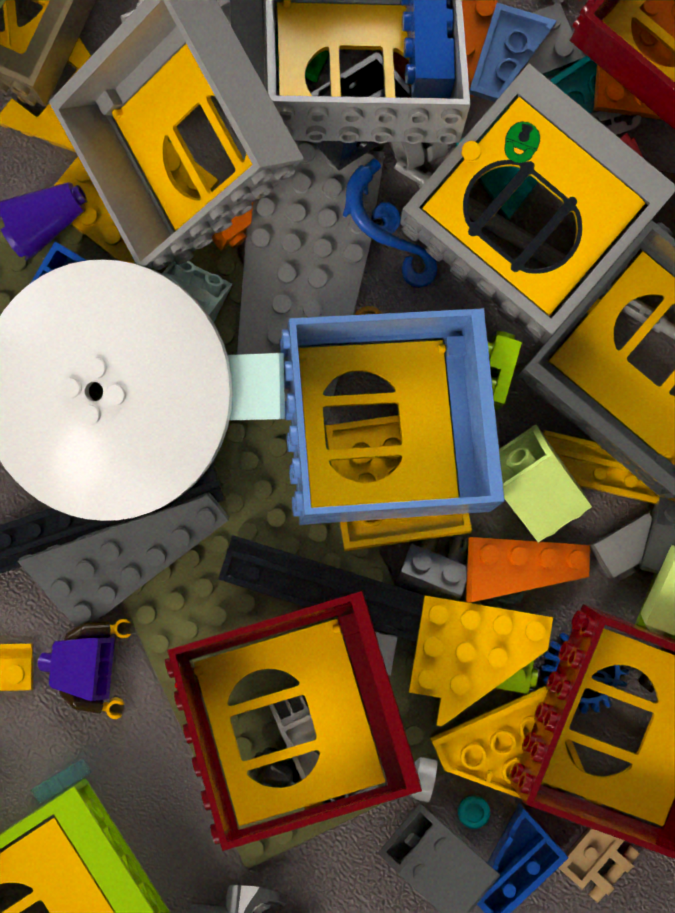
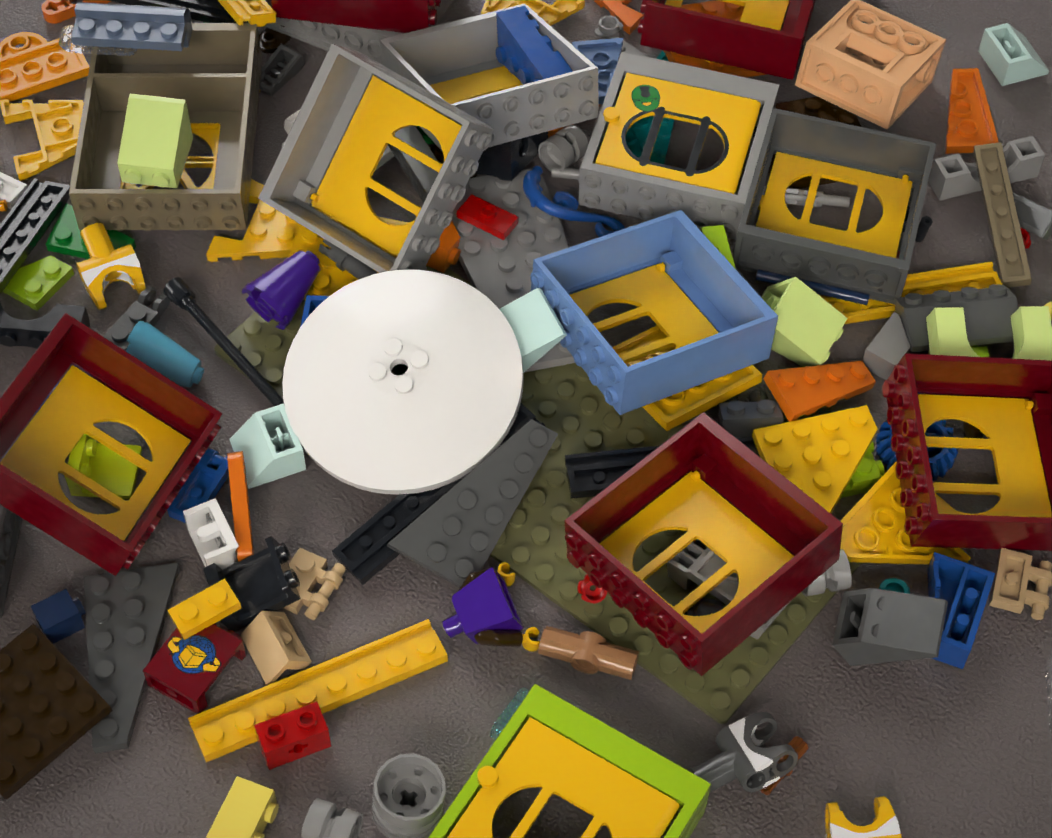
camera: 25 degrees left, 30 degrees down
(156, 747) = (588, 652): none -> medium nougat piece
(294, 209) = (487, 217): none -> red plate
(585, 441) = (819, 288): none -> dark blue bar

